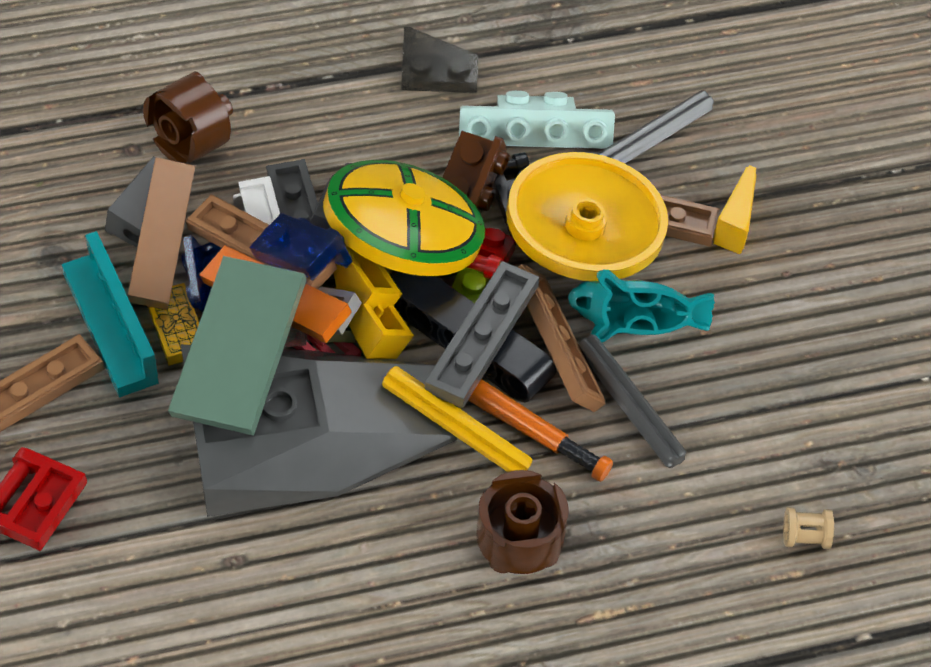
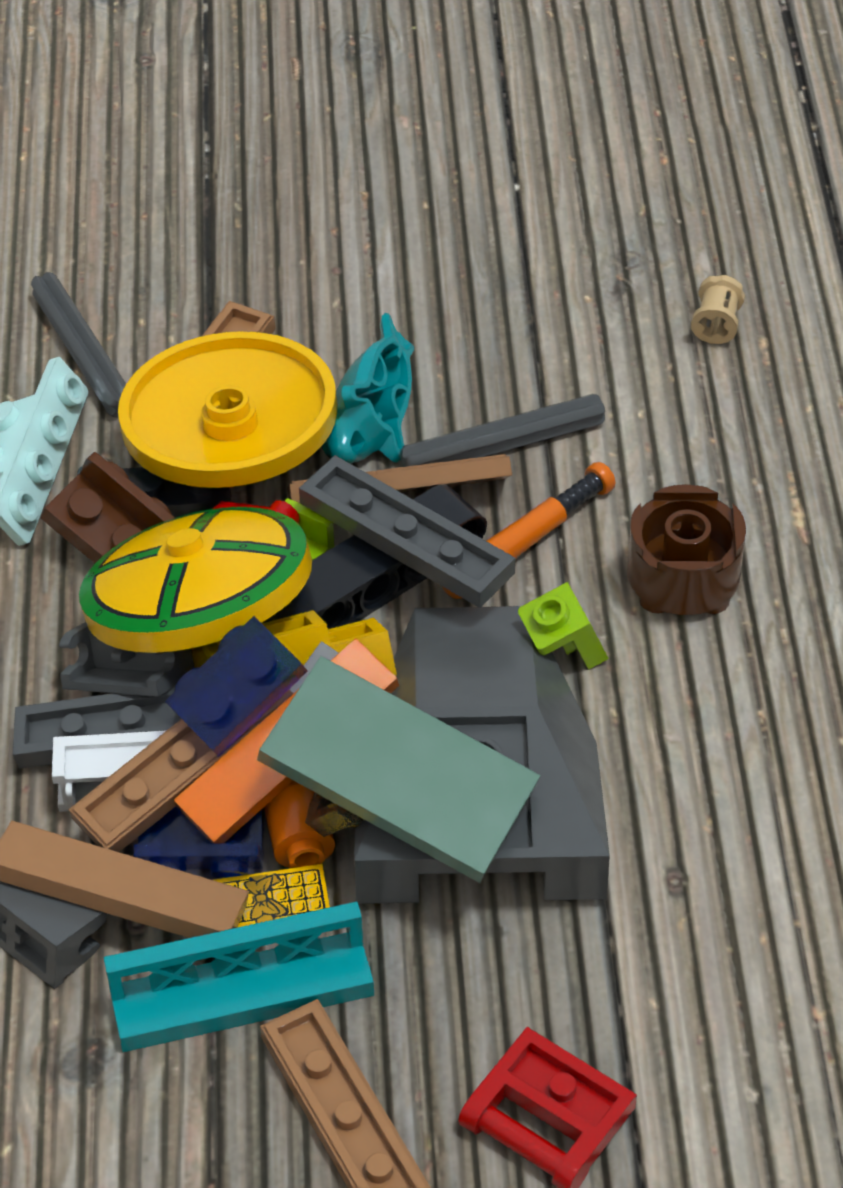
camera: 75 degrees left, 5 degrees down
(433, 455) = (560, 621): none -> lime bracket
(456, 421) = (481, 620): yellow axle -> none
(735, 217) = (244, 278): yellow slope -> none

